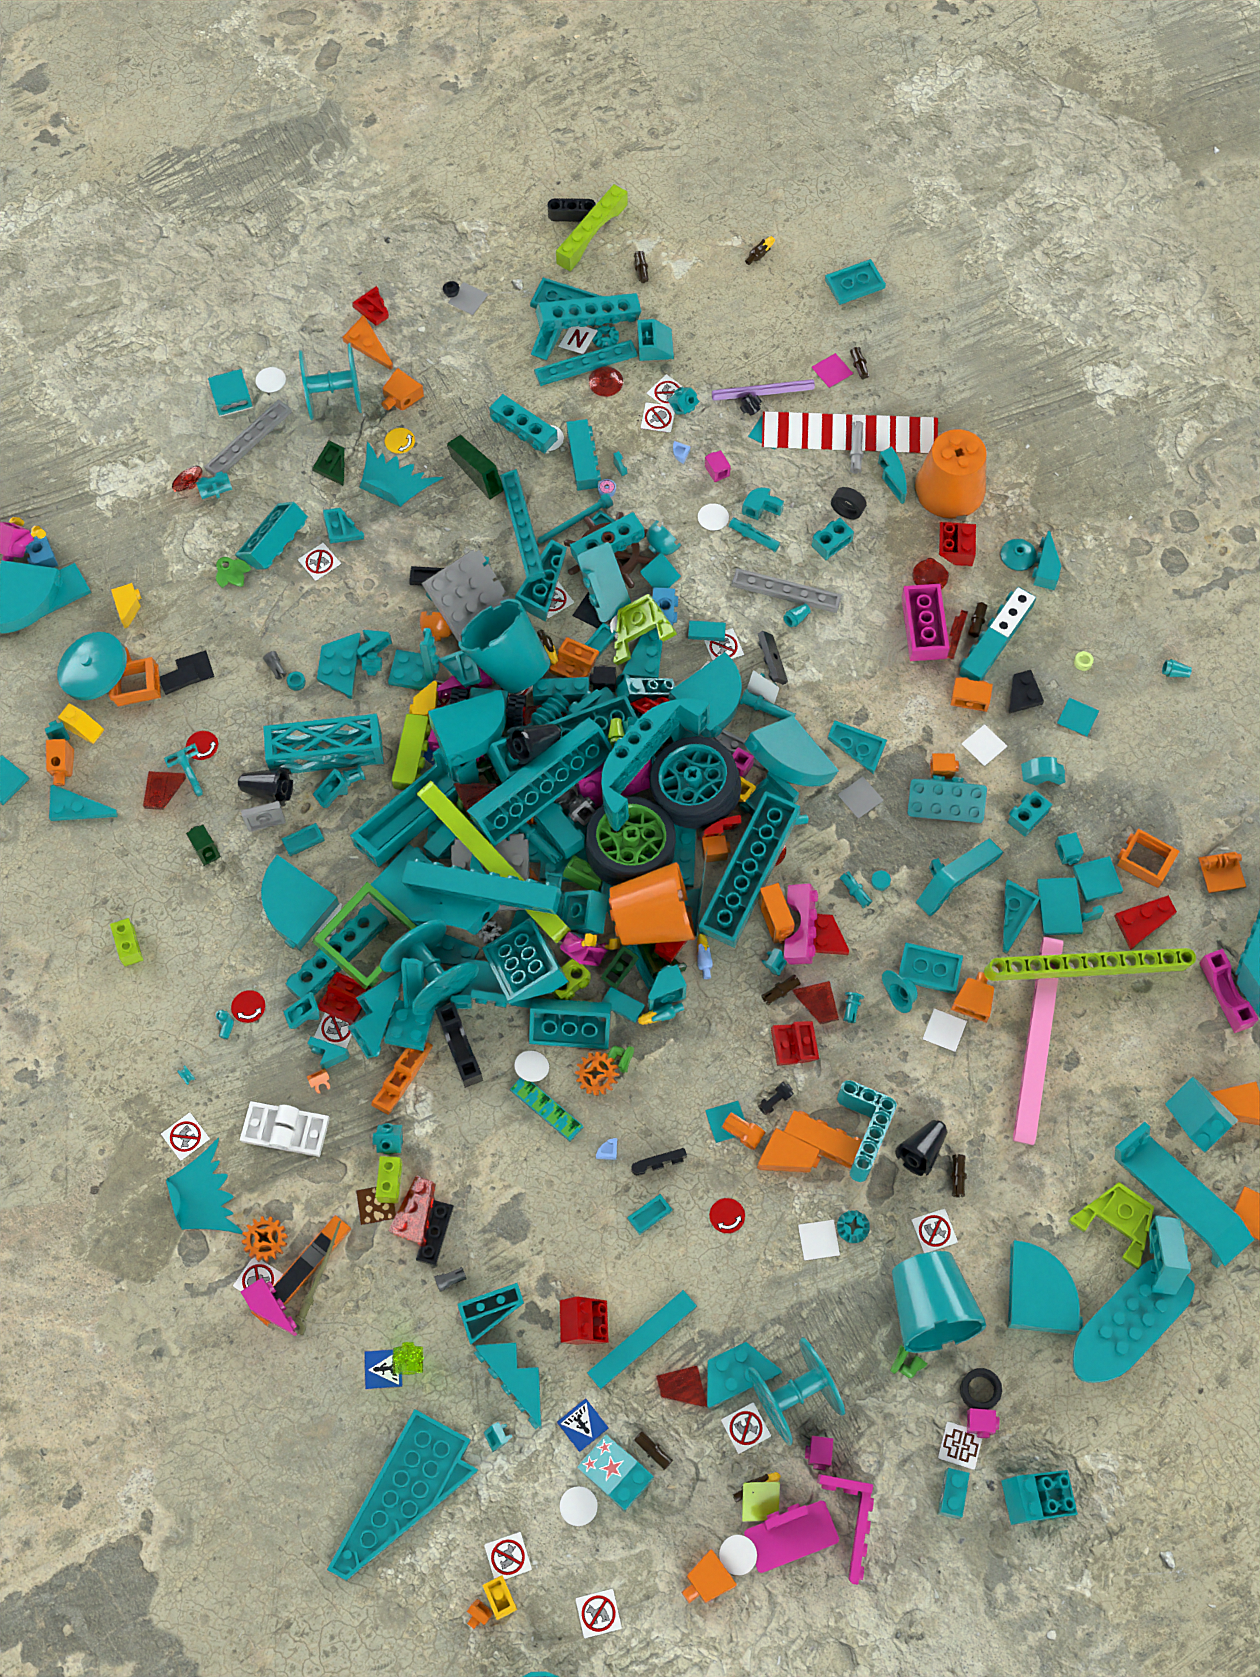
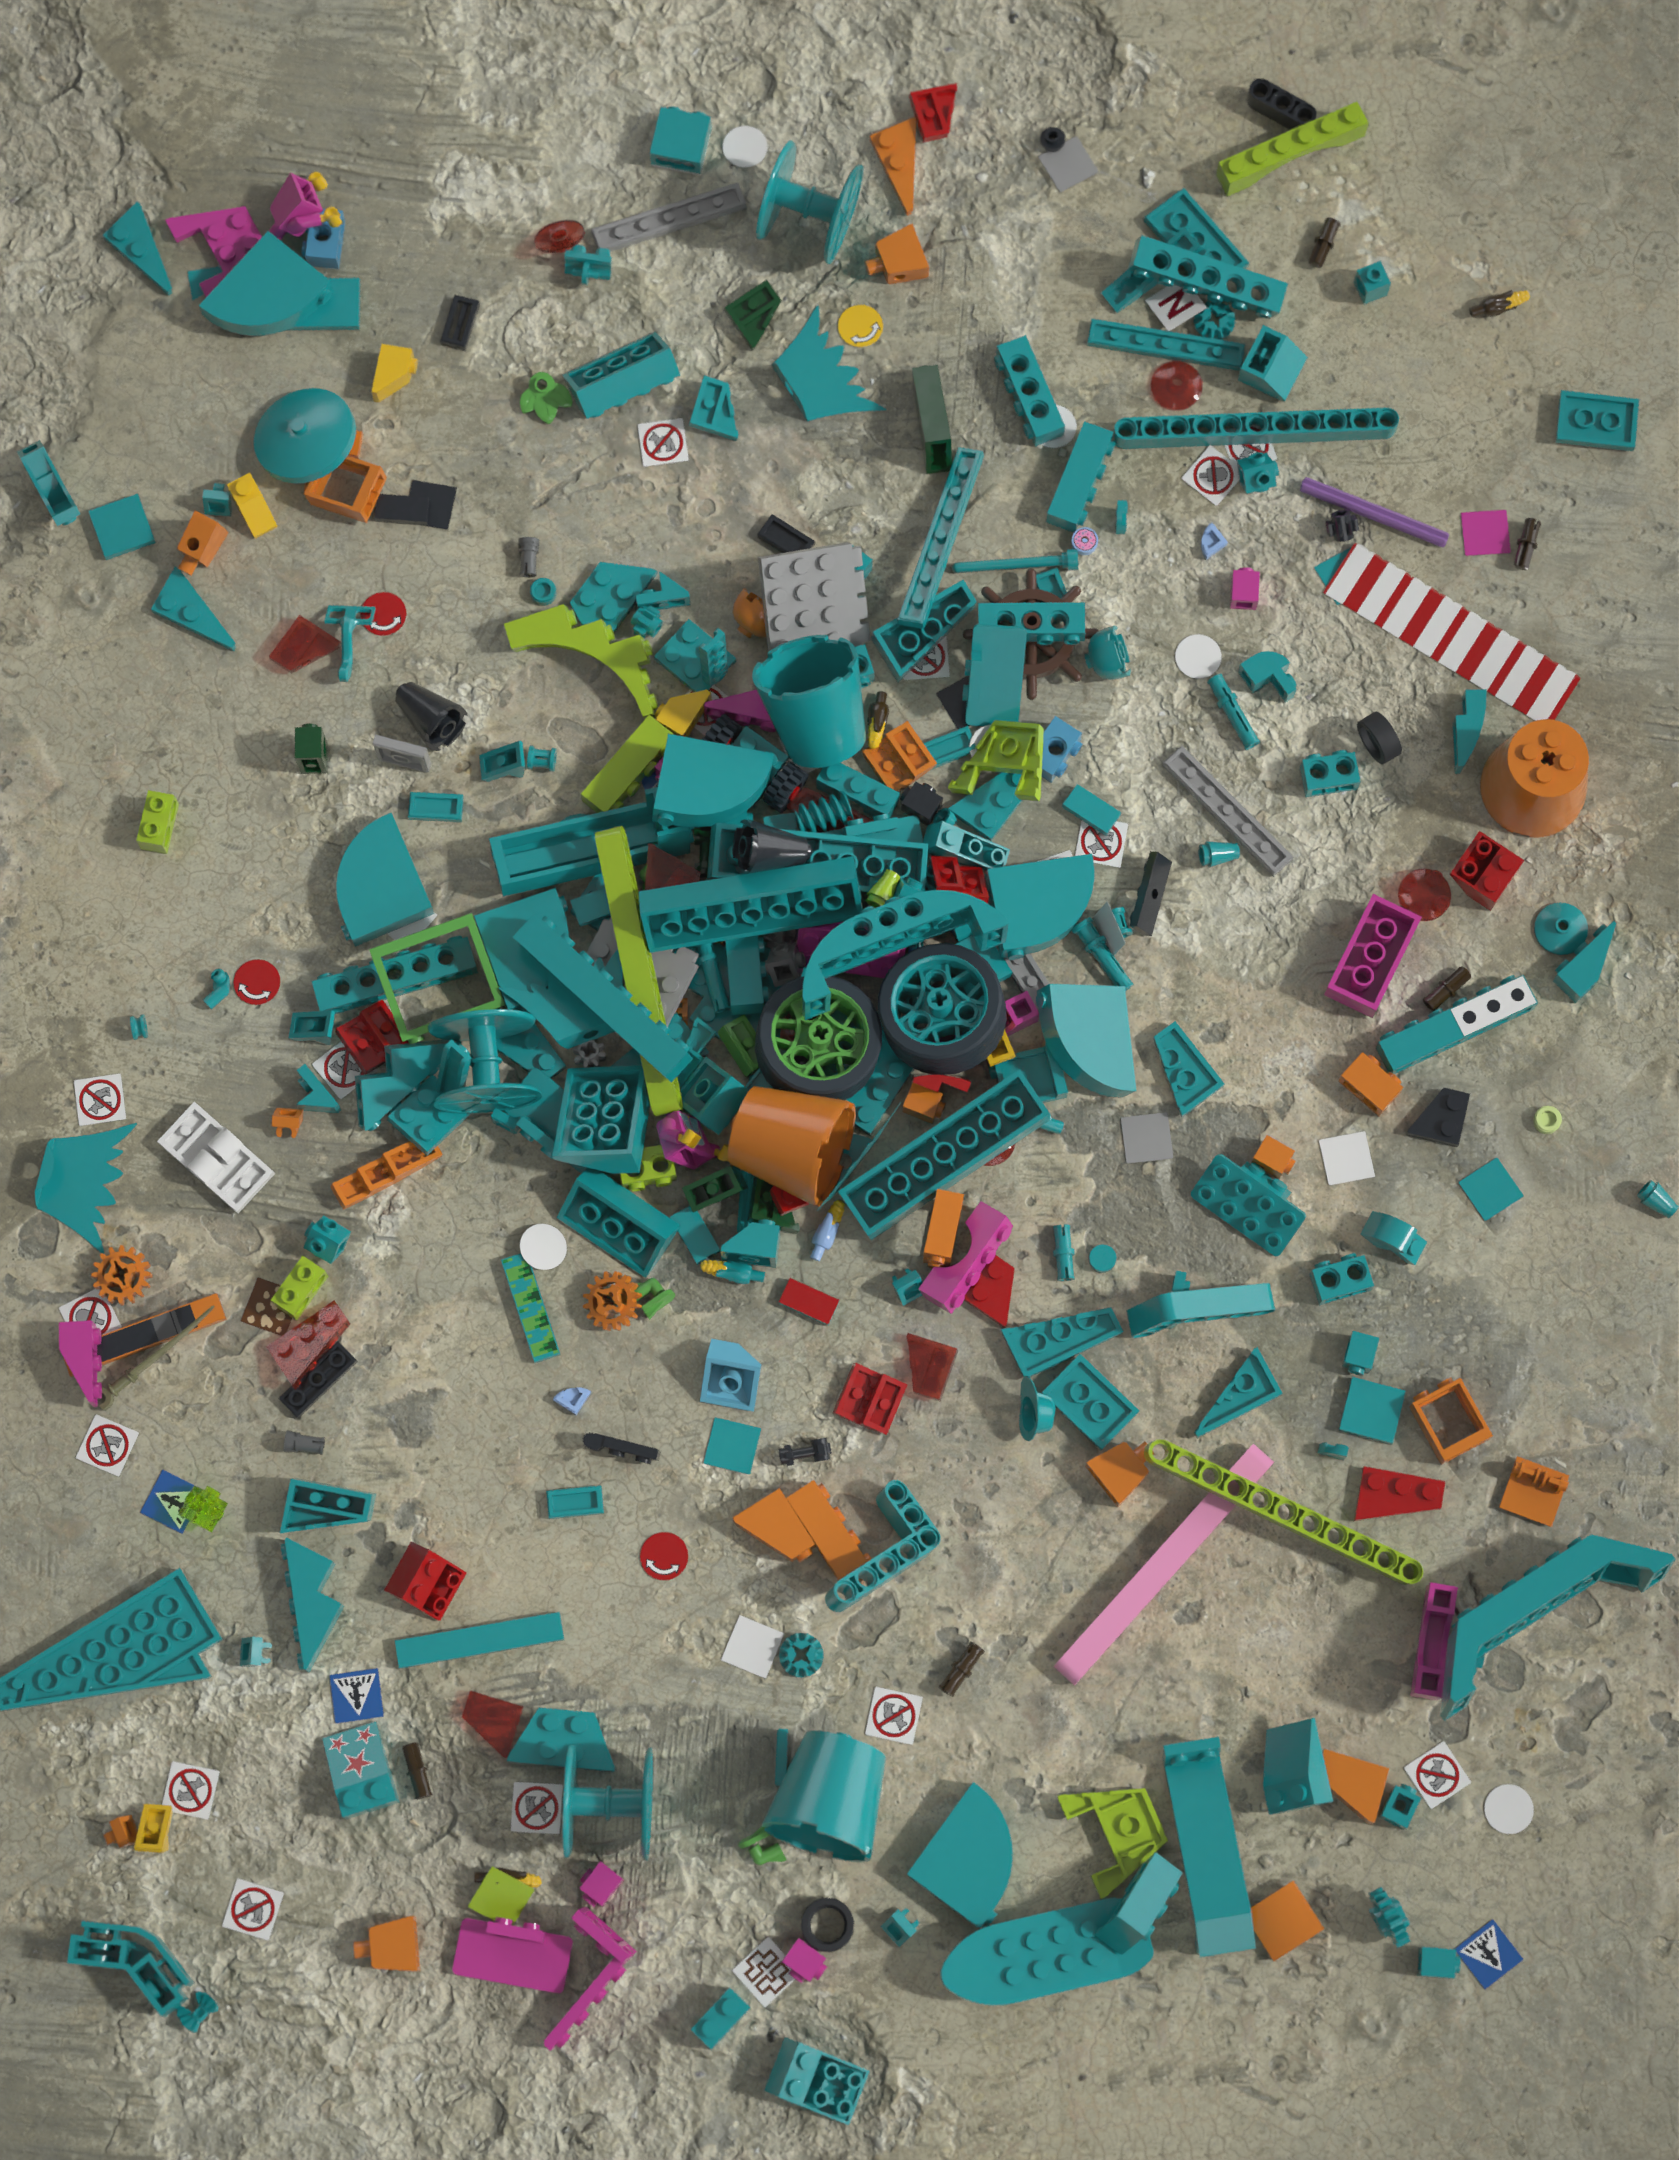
camera: 30 degrees right, 10 degrees up
(155, 569) = (454, 342): none -> black tile
(317, 1357) = (107, 1445): none -> sticker
(345, 689) = (556, 629): none -> lime arch
(364, 726) = (516, 676): teal piece -> none
(459, 1045) = (472, 1173): black arch -> none
(462, 668) = (748, 704): teal wing -> none
(578, 1506) = (299, 1781): white sticker -> none
(660, 572) = (1079, 699): teal sticker -> none
(666, 379) = (1265, 420): none -> teal beam
(682, 272) = (1372, 282): none -> teal brick
(700, 1077) = (730, 1376): none -> medium azure slope
(719, 1005) = (809, 1301): none -> red tile
(738, 1554) = (441, 1939): white sticker -> none
(748, 1134) = (744, 1473): orange piece -> none
(781, 989) = (893, 1324): dark brown pin -> none
(852, 1006) = (966, 1394): teal pin -> none
(856, 451) = (1437, 672): light grey pin -> none
(883, 946) = (1059, 1339): none -> teal wing
(883, 1298) = (781, 1755): none -> teal tile
(922, 1148) = (940, 1612): black cone -> none
(944, 1030) = (1061, 1487): white sticker -> none
(956, 632) = (1404, 992): clear red wing -> none
(1027, 1363) = (899, 1928): none -> teal tile
(1059, 906) = (1301, 1417): teal tile -> none

